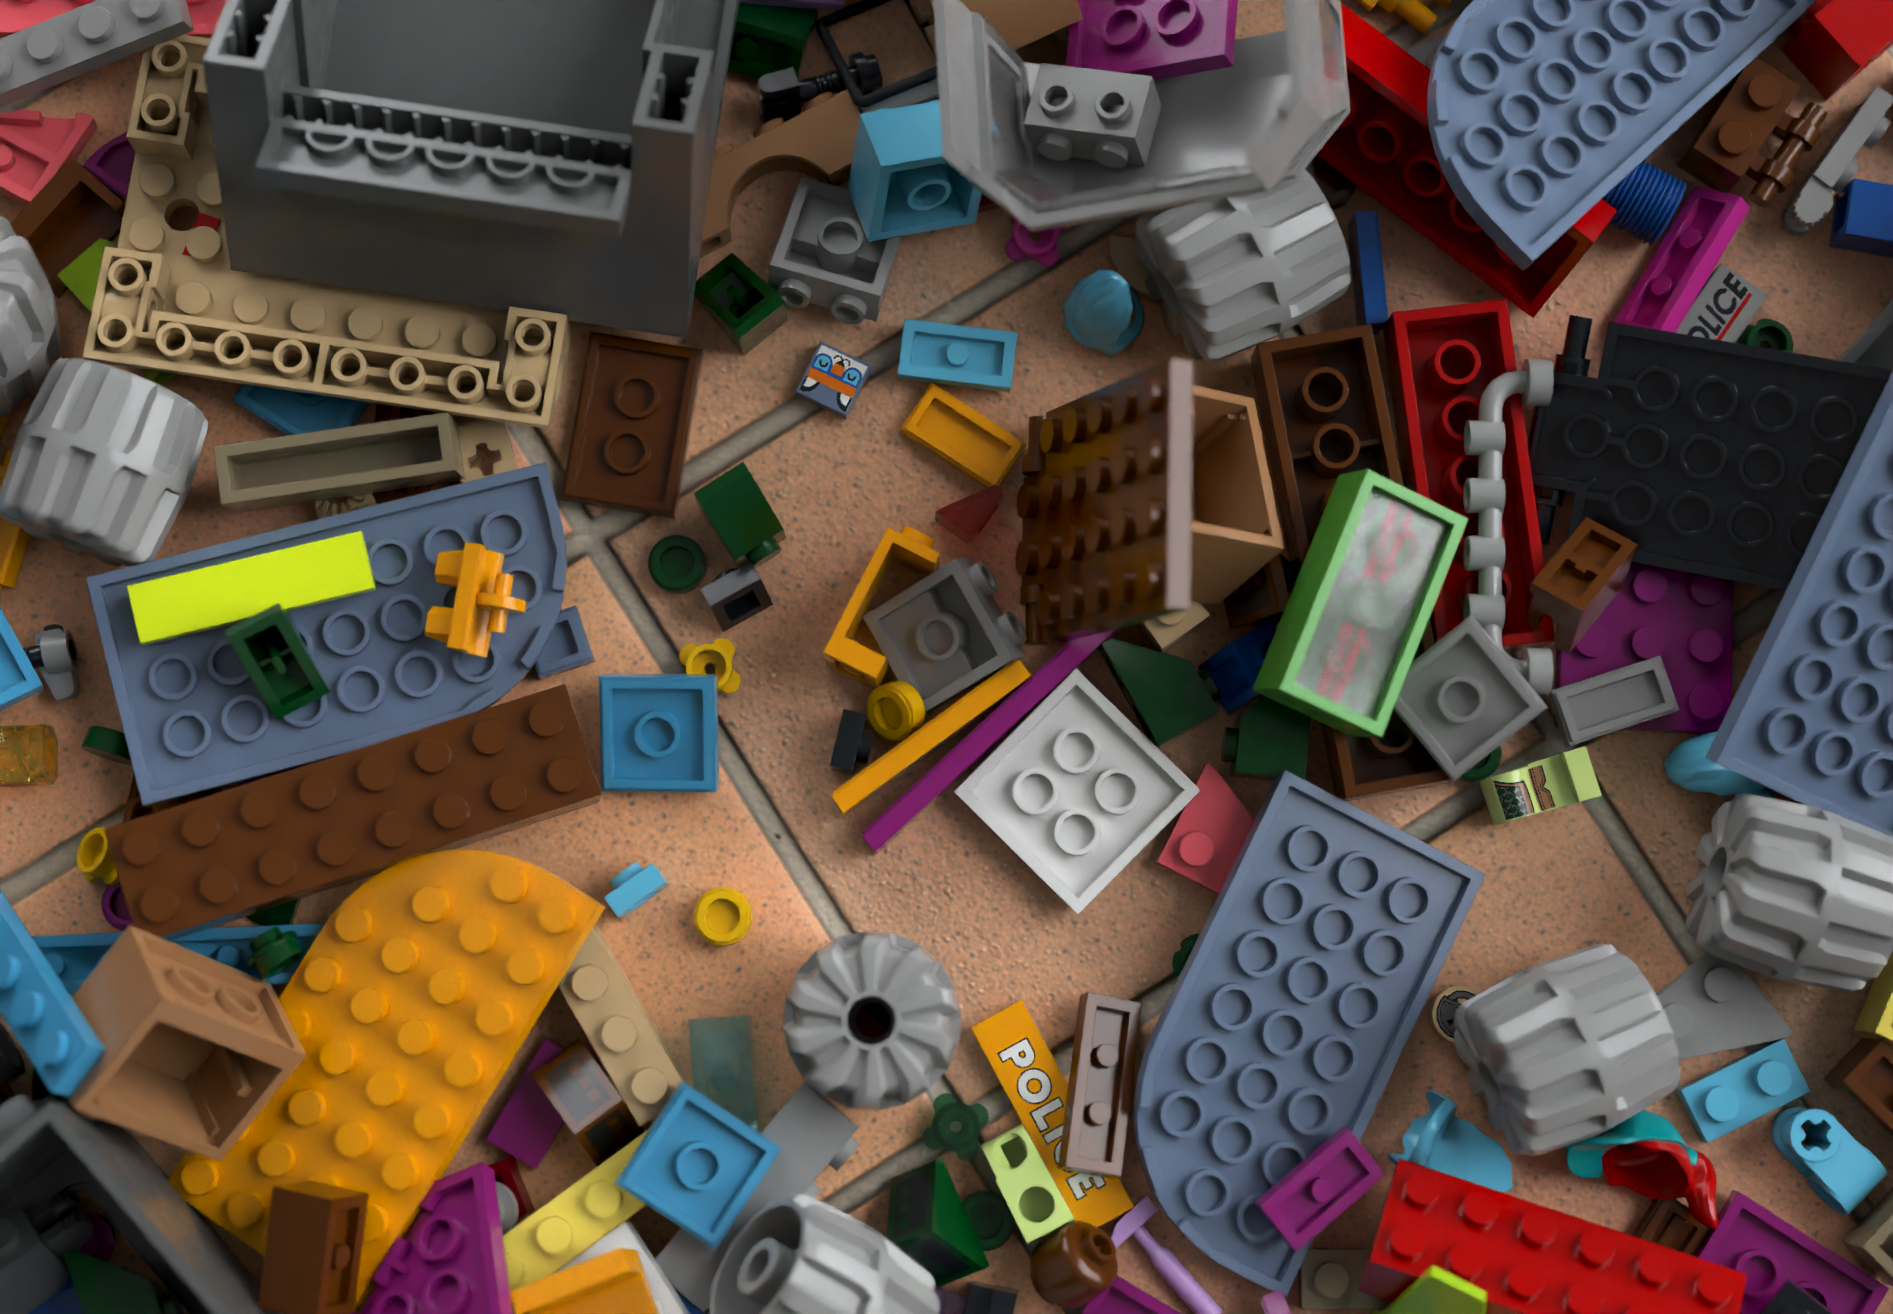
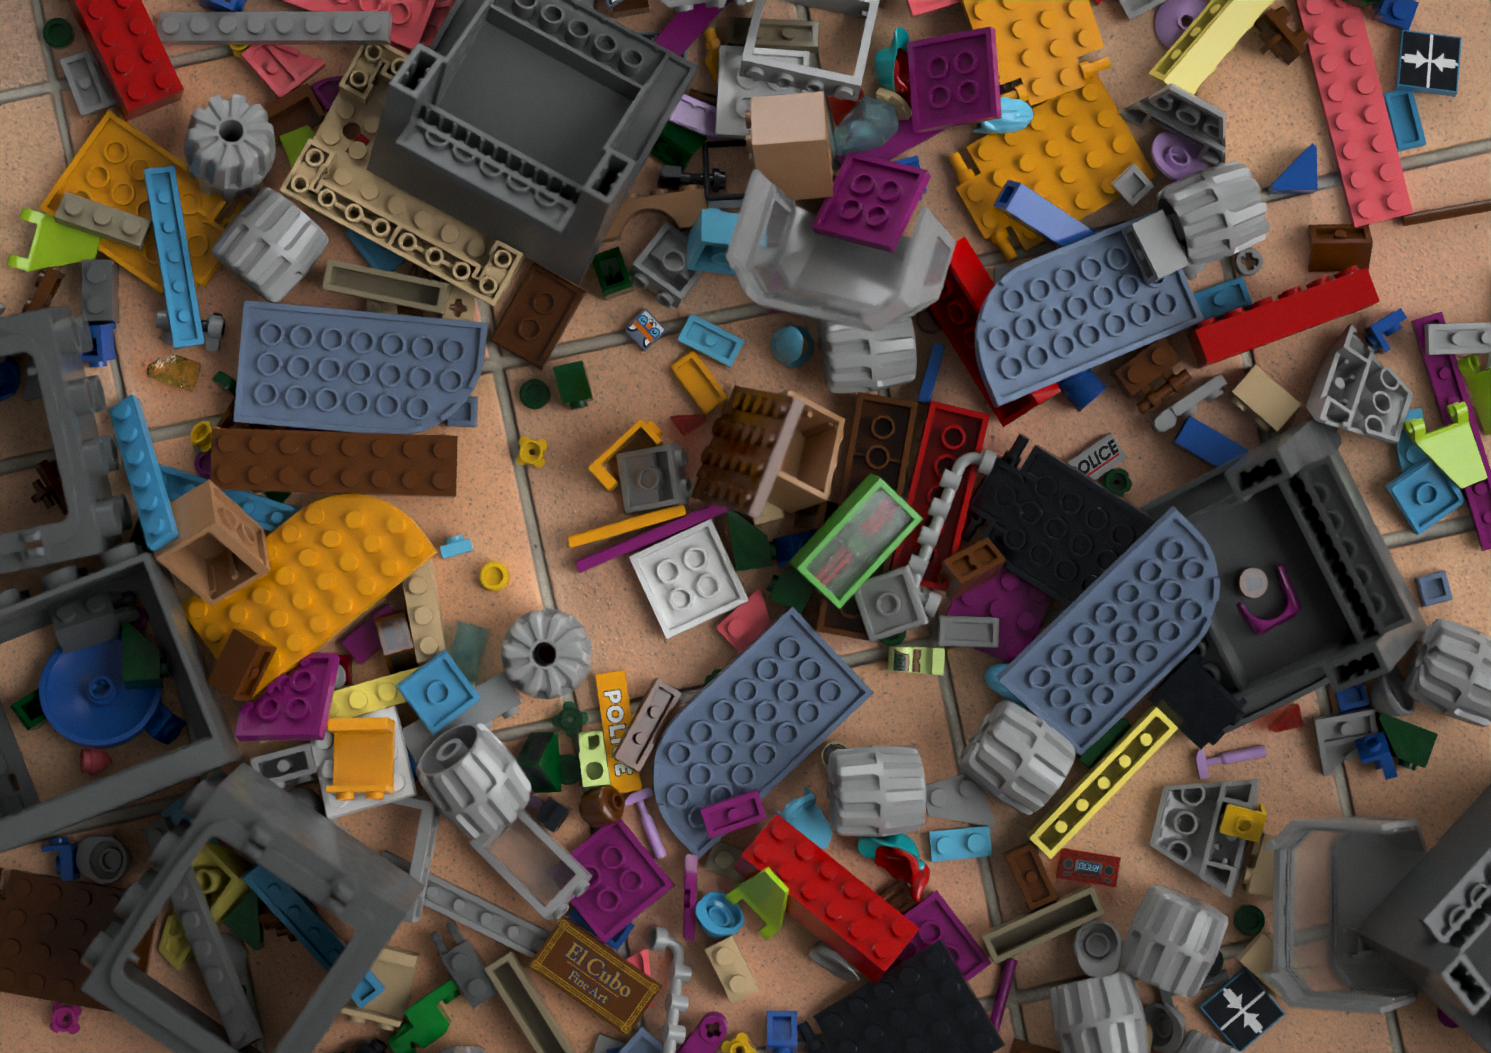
camera: 25 degrees right, 5 degrees up
(250, 585) = (322, 334): neon yellow tile -> none
(274, 952) = (271, 514): dark green plate -> none
(277, 660) = (323, 376): dark green slope -> none
(480, 599) = (430, 382): light orange hips -> none
(659, 732) = (495, 475): dark azure tile -> none
(736, 595) = (557, 421): black plate -> none
(852, 742) = (588, 514): black plate -> none
(896, 710) = (615, 506): yellow tile -> none
(1092, 115) = (817, 250): light grey brick -> none
(1684, 260) = (1089, 426): dark pink plate -> none
(1833, 1162) = (989, 894): medium azure piece -> none

